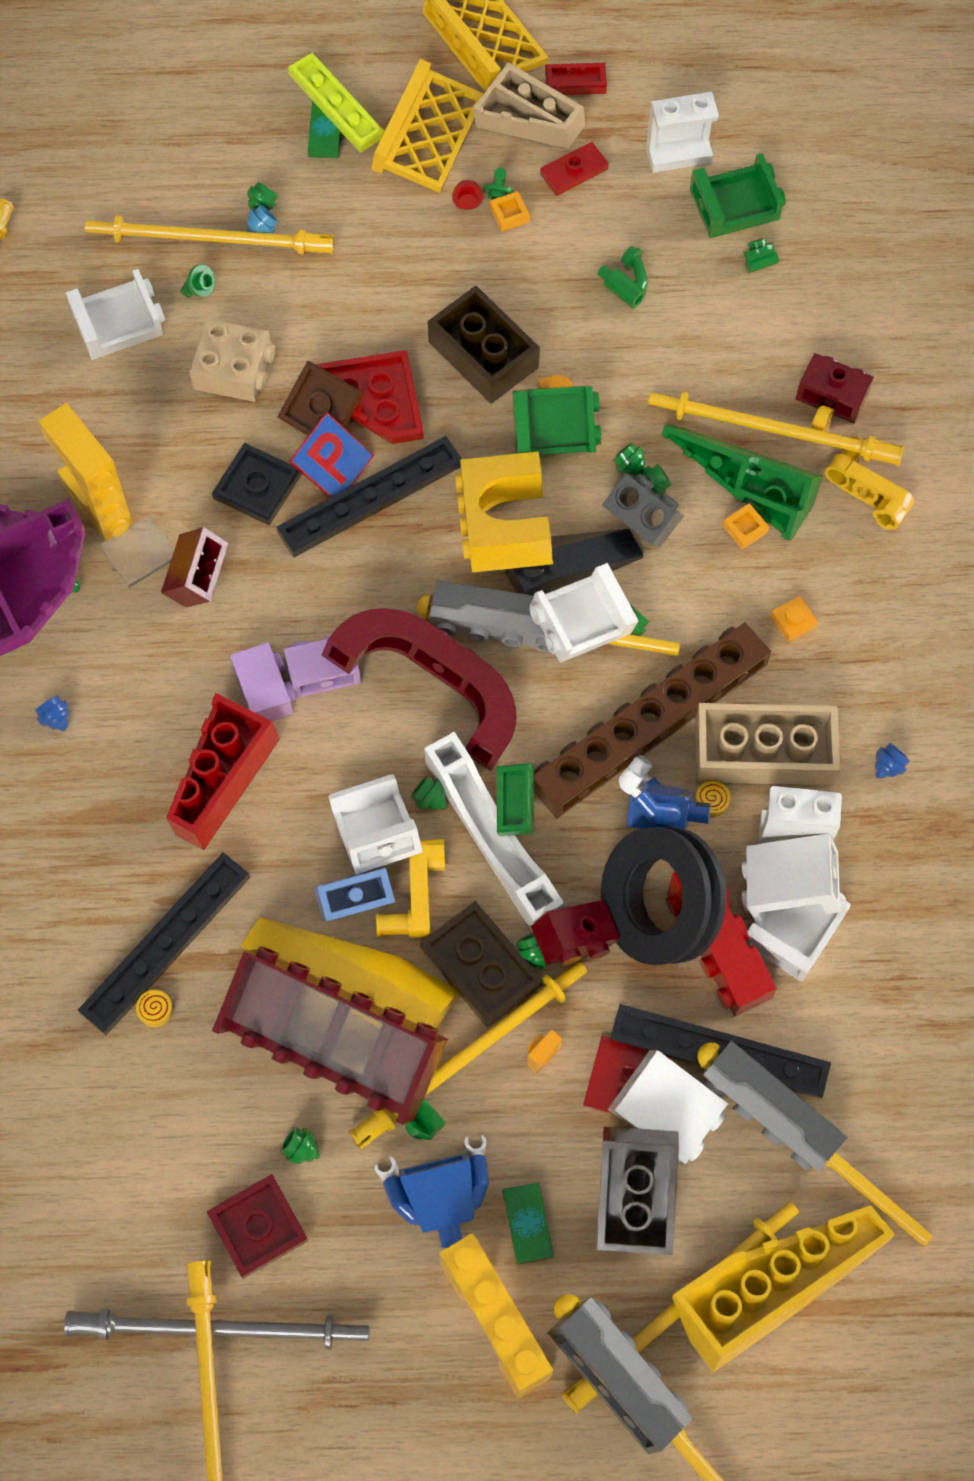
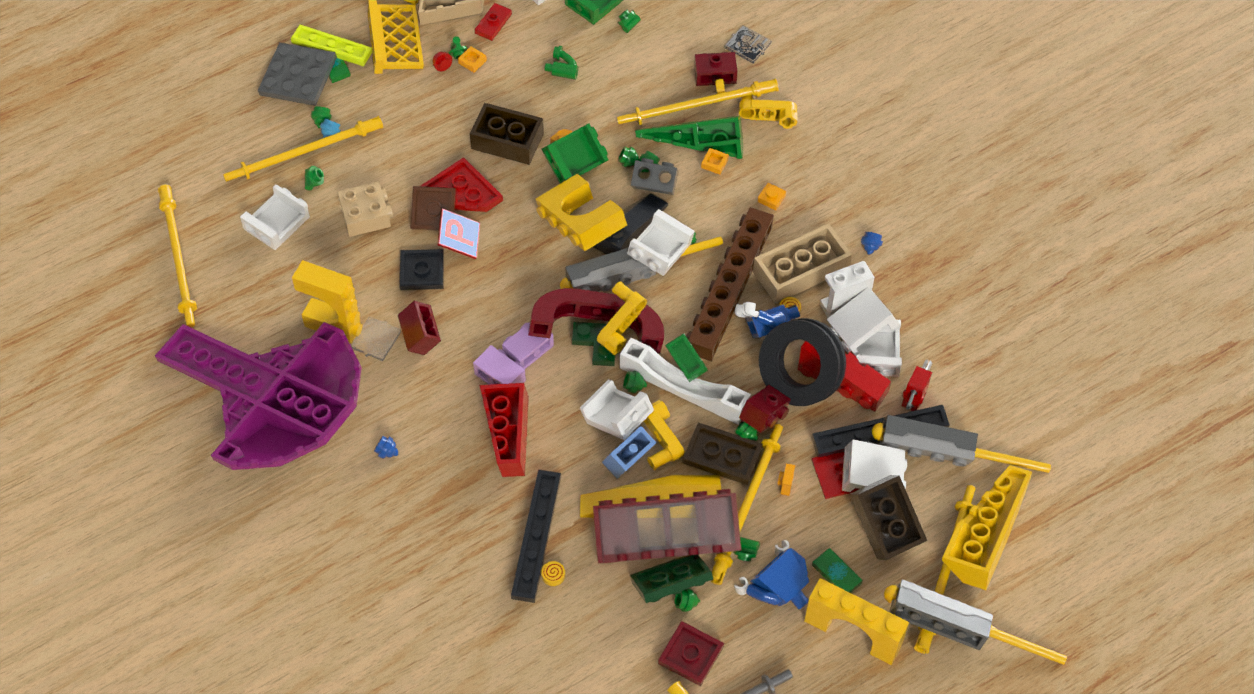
camera: 30 degrees left, 10 degrees down
(268, 122) = (297, 74): none -> dark grey plate
(293, 1106) = (671, 577): none -> dark green plate
(369, 496) = (493, 244): black plate -> none
(428, 706) = (586, 335): none -> dark green plate
(433, 712) = (611, 334): none -> yellow beam
(810, 1017) = (917, 387): none -> red piece
(908, 371) = (748, 44): none -> piece

